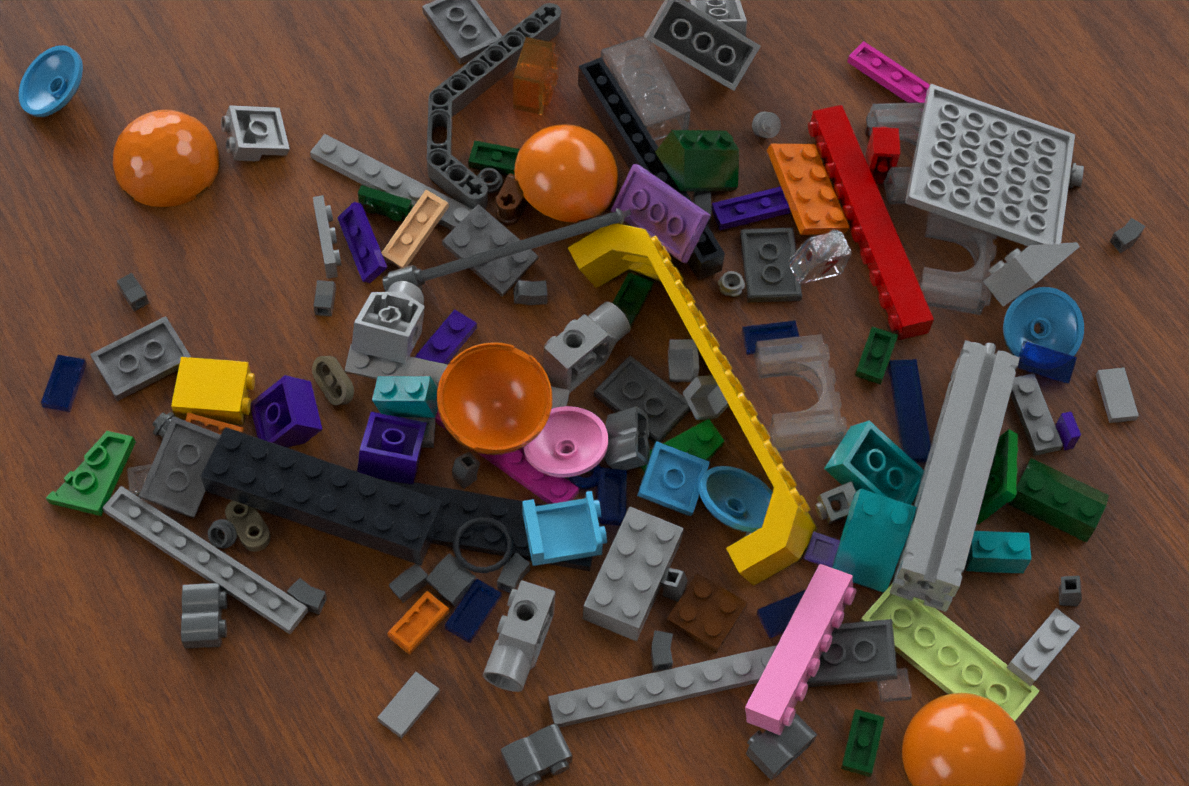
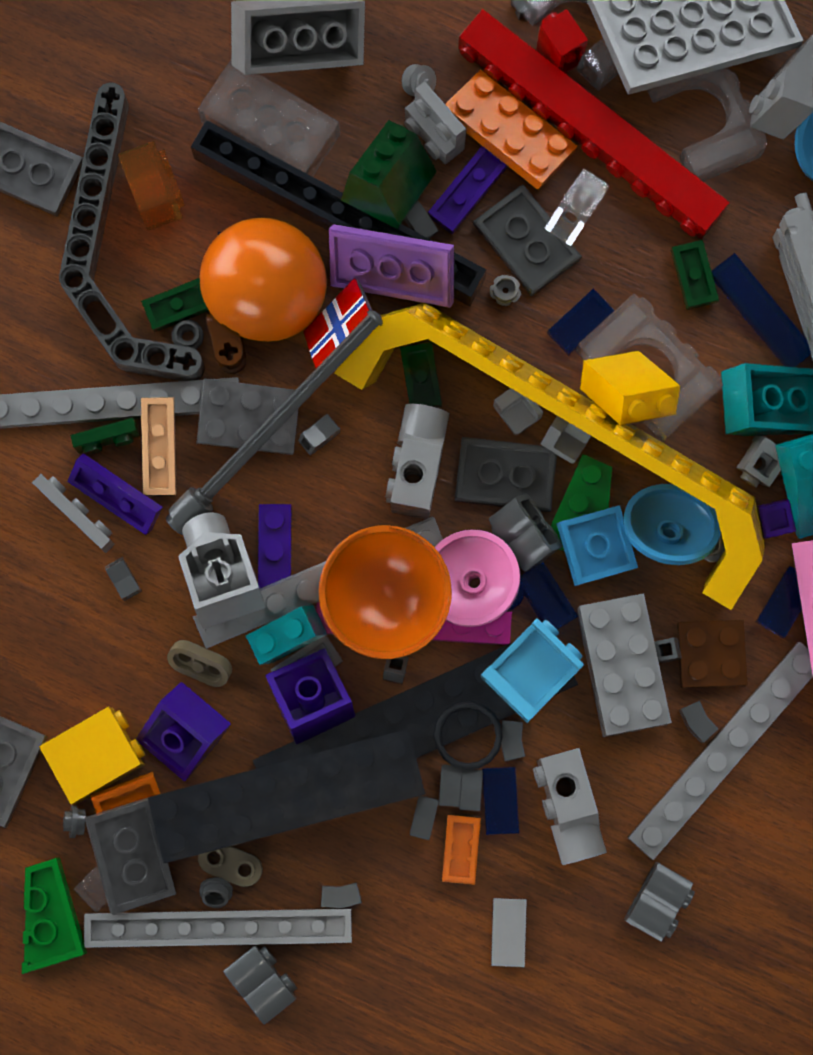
camera: 30 degrees left, 20 degrees up
(756, 151) = (435, 124): none -> light grey plate
(772, 385) = (629, 387): none -> yellow brick

